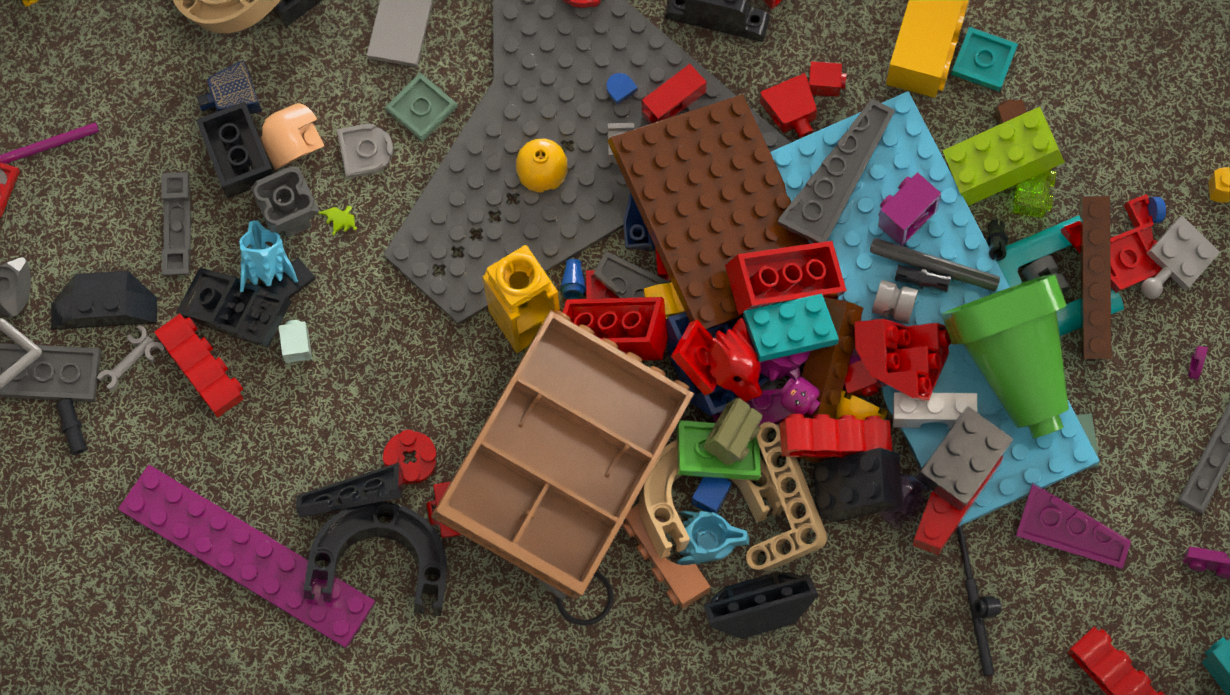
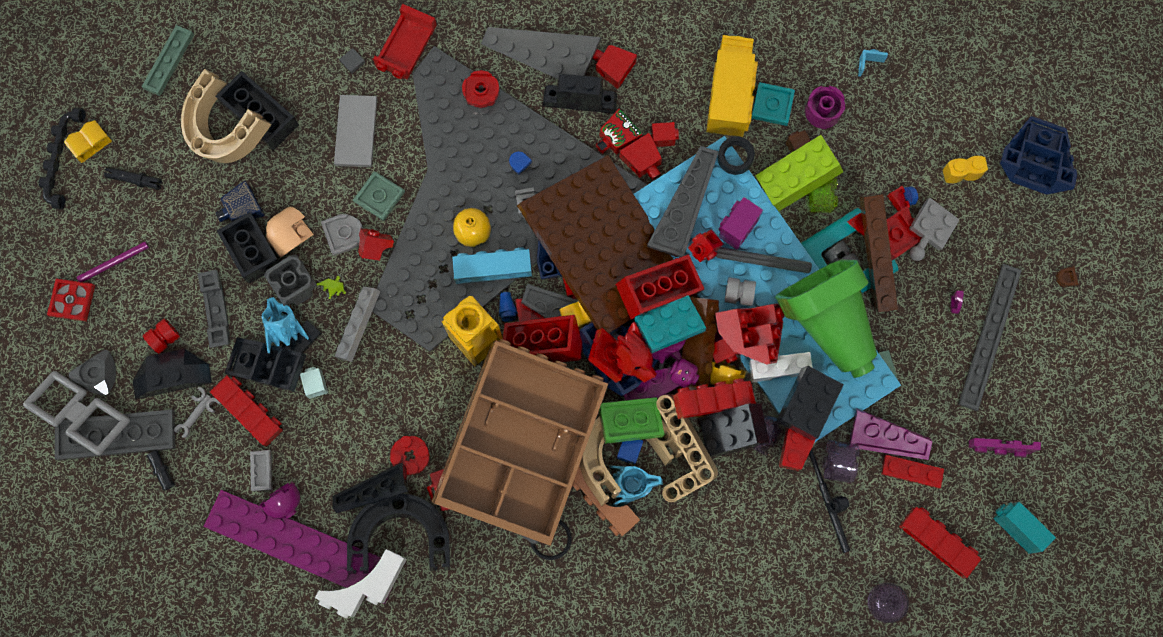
camera: 10 degrees left, 5 degrees up
(99, 249) = (161, 336): none -> red wheel
(102, 40) = (139, 179): none -> black pin
(206, 447) = (261, 470): none -> light grey plate
(229, 491) = (282, 502): none -> magenta cylinder
(337, 617) = (375, 586): none -> white arch
(365, 272) = (357, 324): none -> light grey plate
(404, 168) = (373, 243): none -> red brick
(561, 220) = (492, 266): none -> medium azure brick
(673, 95) = (558, 163): red brick -> none
(733, 432) = (640, 406): olive brick -> none
(760, 604) = (677, 526): black wedge -> none
(761, 68) = (617, 133): none -> torso
(857, 233) = (705, 246): none -> red brick
(918, 99) = (738, 141): none -> black tyre
(922, 278) = (756, 271): black pin -> none
(997, 240) = (803, 234): black pin -> none
(998, 550) = (841, 461): none -> clear purple brick
(1055, 72) = (819, 99): none -> magenta brick
(1098, 582) = (912, 471): none -> red plate
(1132, 12) = (870, 55): none -> medium azure bracket

